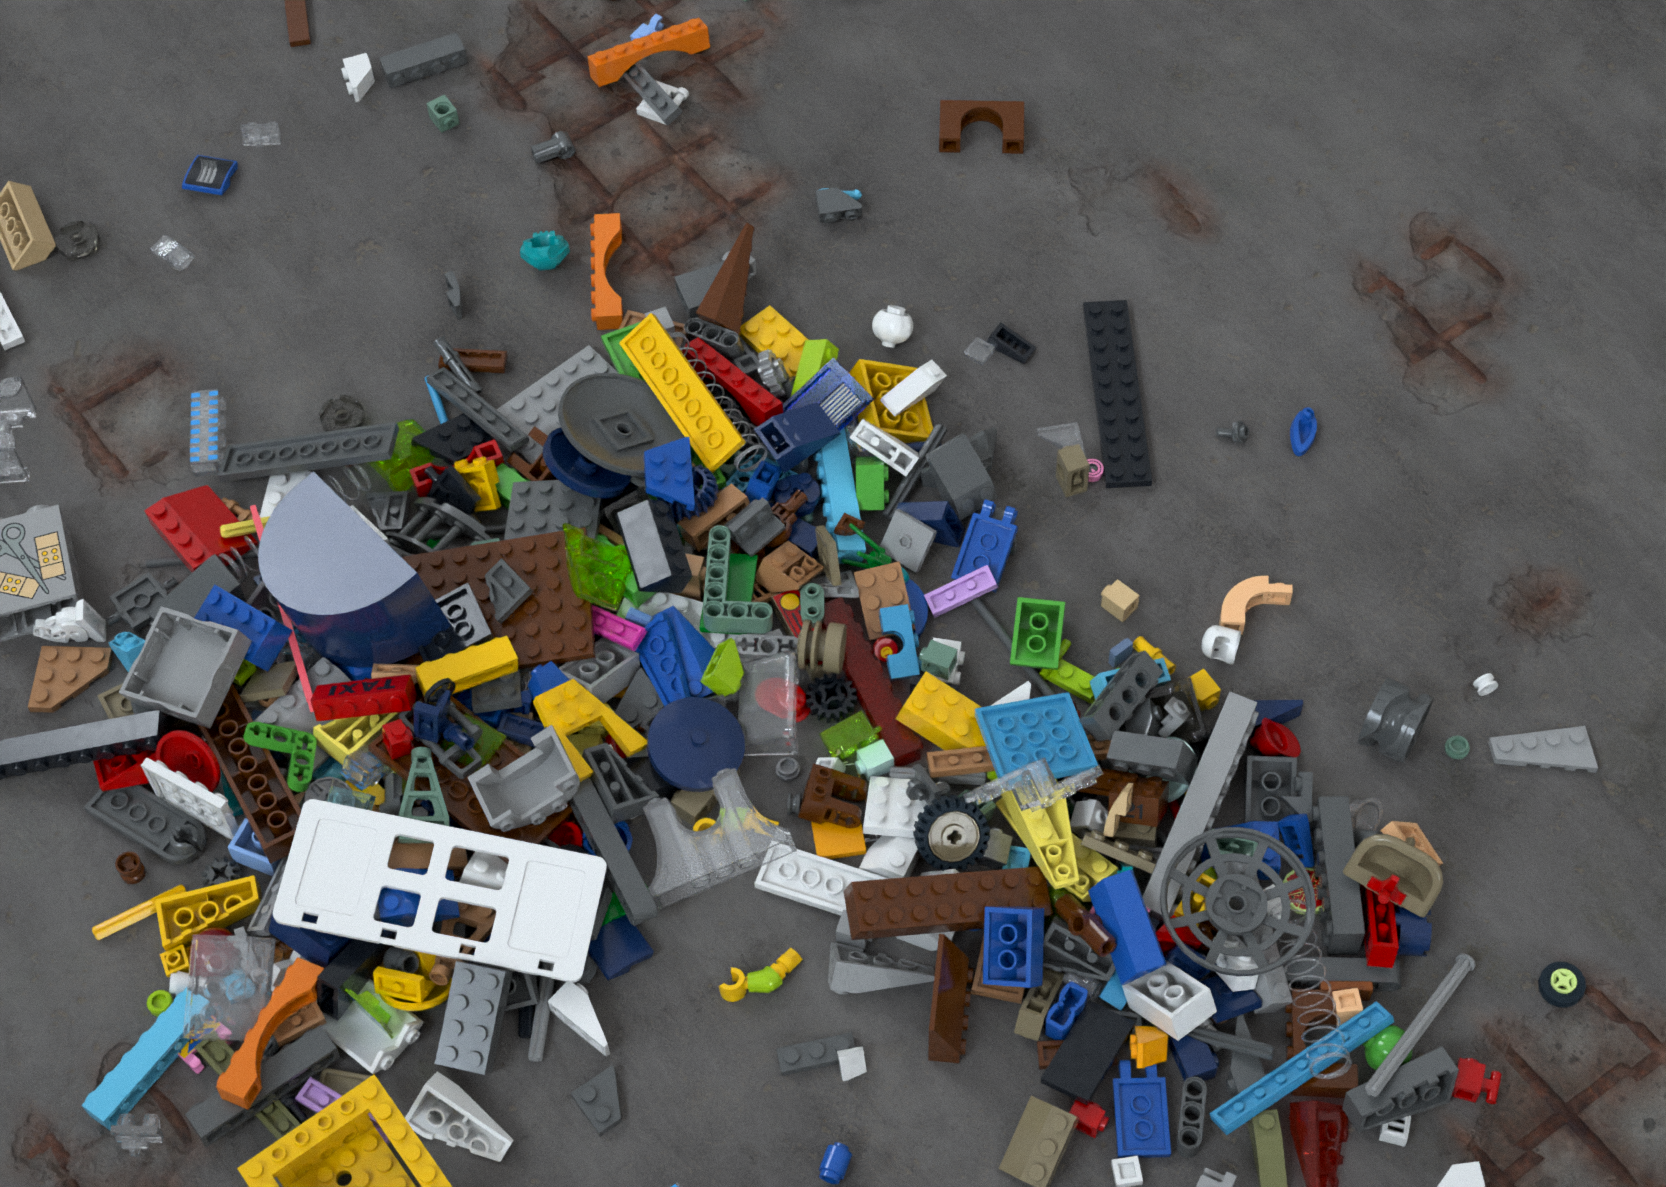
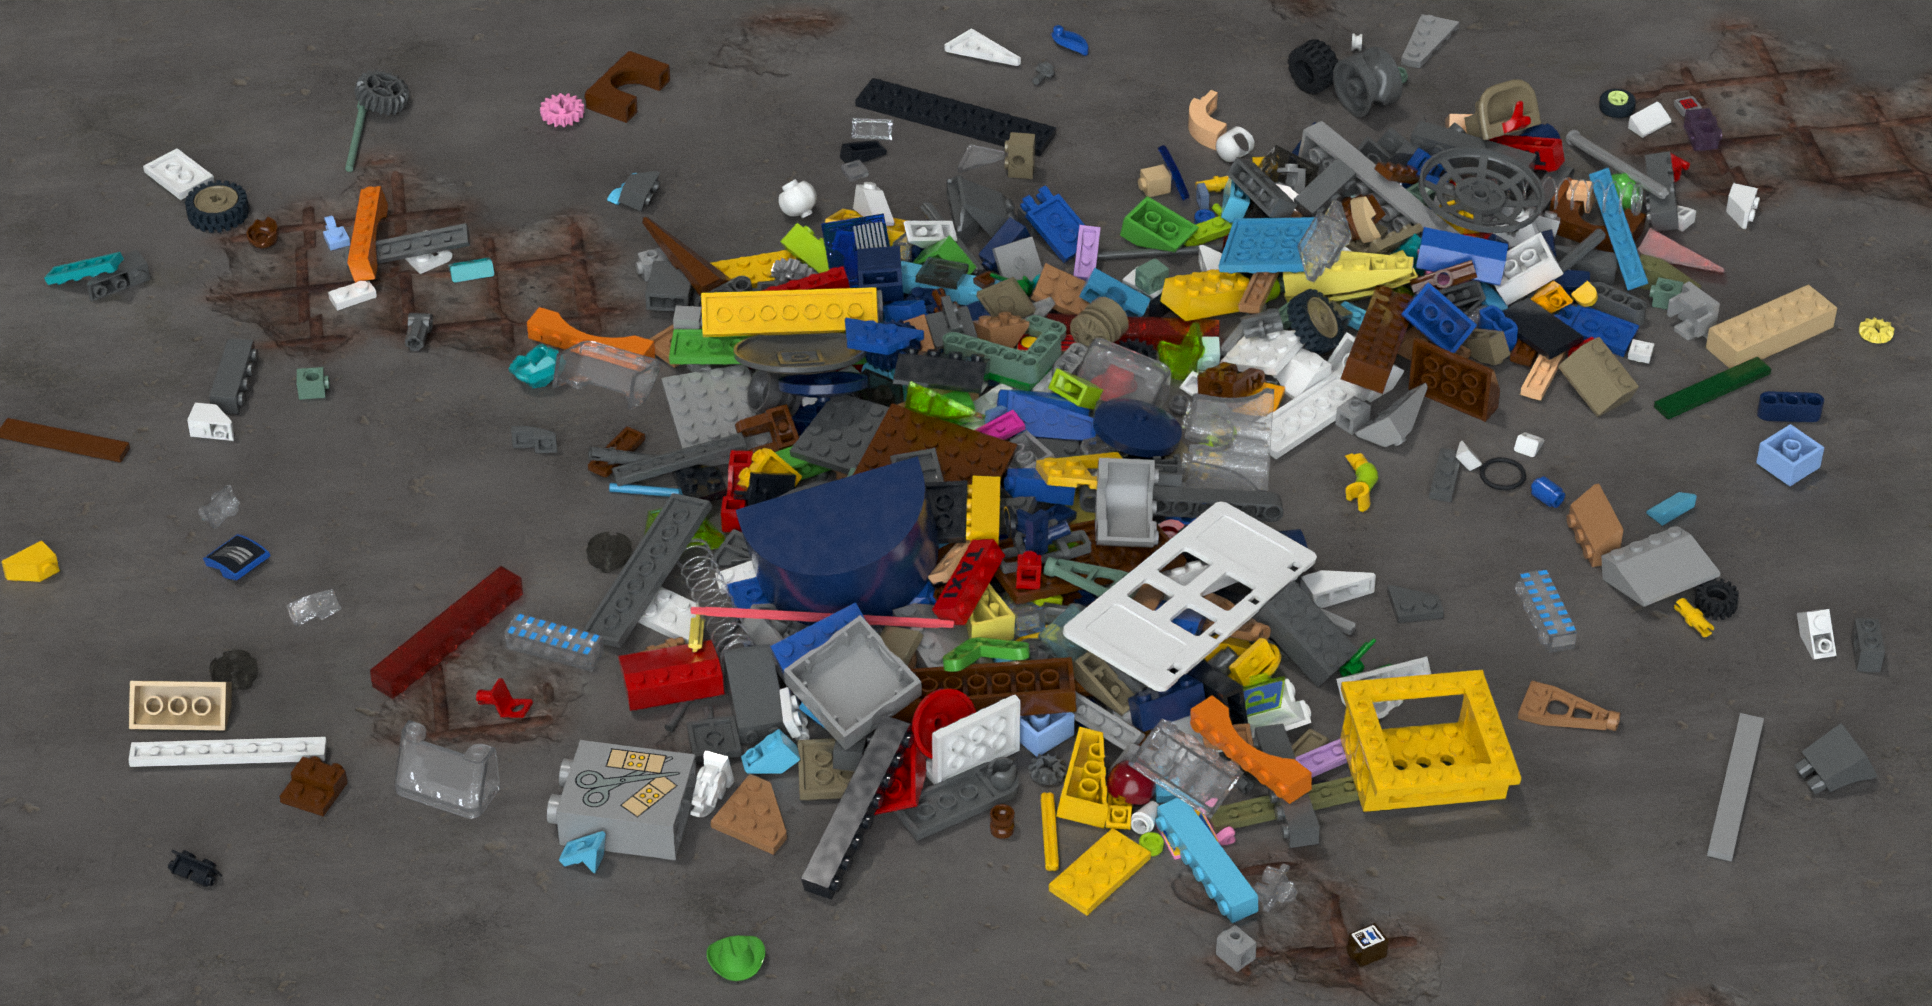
camera: 65 degrees left, 15 degrees down
(44, 1130) = (1236, 948): none -> light grey brick
(106, 975) = (1099, 871): none -> yellow plate
(119, 432) = (503, 701): none -> red bracket
(139, 56) = (31, 564): none -> yellow slope
(185, 354) = (446, 632): none -> clear red brick
(474, 1082) = (1355, 665): none -> green plant
(574, 290) = (608, 368): none -> clear windscreen
(577, 83) = (352, 294): none -> white plate
(660, 144) = (471, 269): none -> slope
(833, 485) = (942, 273): none -> clear smoke plate
(849, 1086) = (1502, 487): none -> black piece
(912, 1115) = (1528, 444): none -> white slope
(915, 97) = (562, 110): none -> bright pink gear
(1019, 1086) = (1541, 376): none -> light nougat plate
(1048, 334) = (872, 129): none -> clear slope
(1095, 666) = (1203, 215): none -> blue tile
(1131, 609) = (1174, 172): none -> clear blue tile
(1173, 1078) = (1585, 295): none -> yellow tile
(1228, 808) = (1398, 172): none -> reddish brown plate
(1236, 360) = (978, 46): none -> white wing
(1245, 1173) = (1664, 291): none -> sand green brick
(1392, 657) = (1312, 66): none -> black tyre
(1555, 1030) = (1649, 120): none -> white slope
(1568, 1088) = (1702, 129): none -> clear purple brick
(1613, 1061) = (1686, 103): none -> tile

